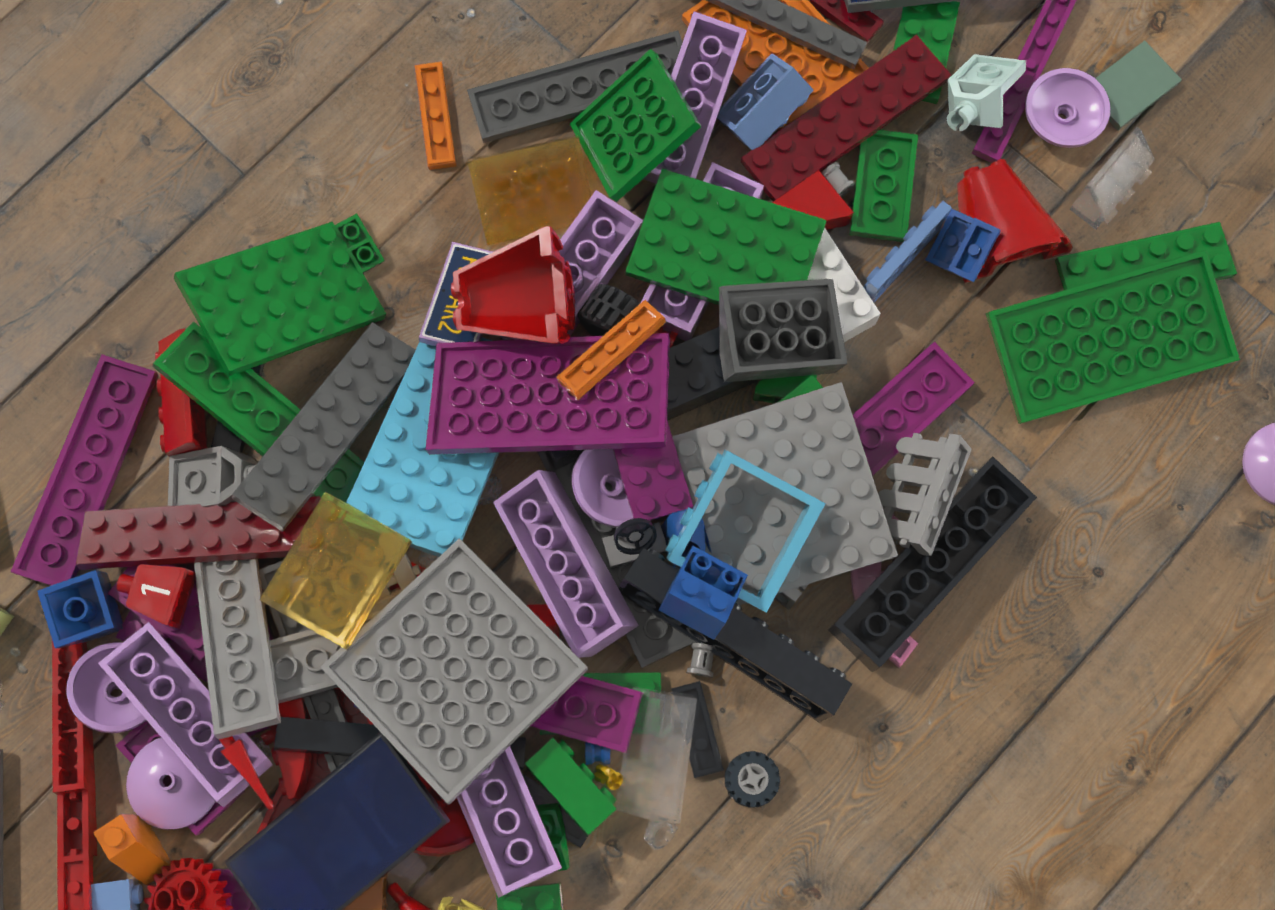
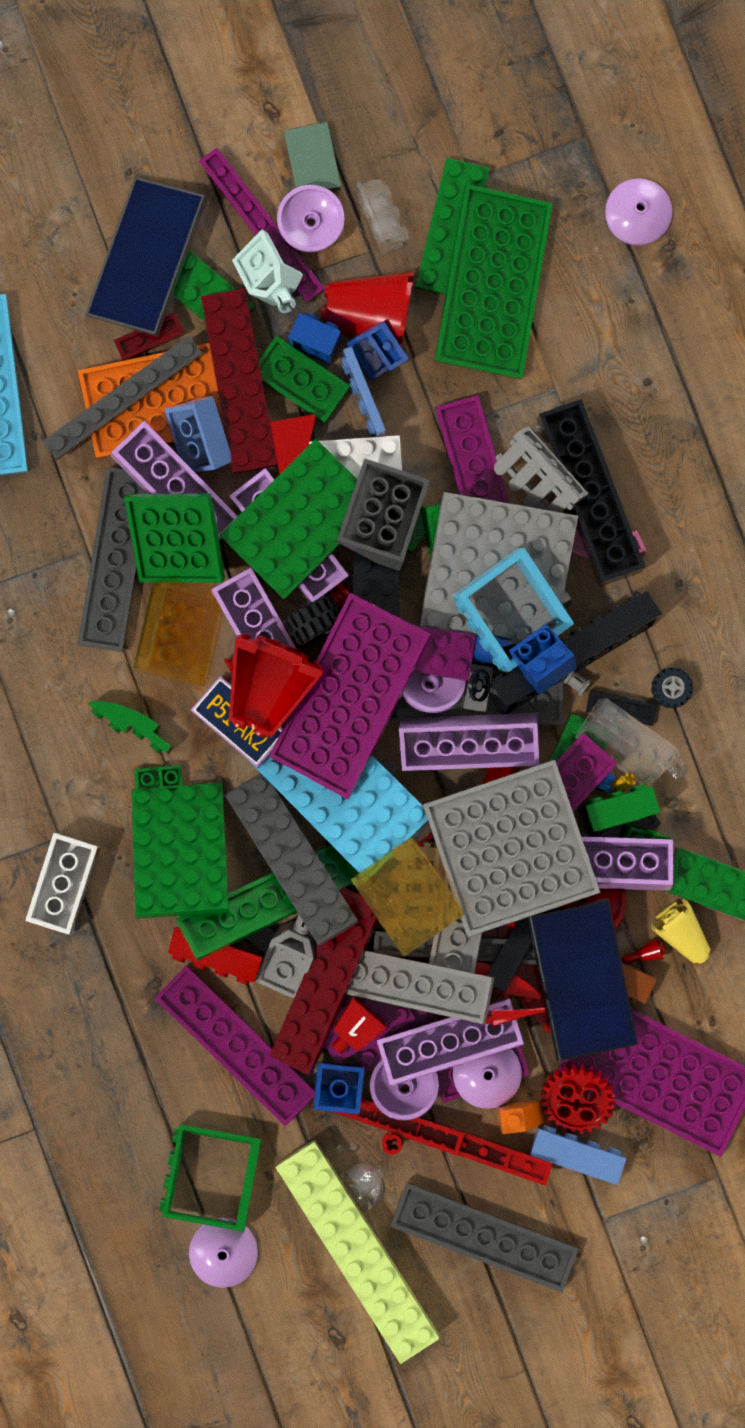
camera: 65 degrees left, 10 degrees up
(32, 713) = (393, 1150): none -> red bush
(189, 195) = (62, 883): none -> white brick
(409, 185) = (124, 718): none -> green slope
(435, 115) = (83, 676): orange tile -> none
(611, 349) = (342, 637): orange tile -> none
(838, 179) = (281, 411): light grey bush -> none
(939, 171) = (315, 337): none -> blue brick

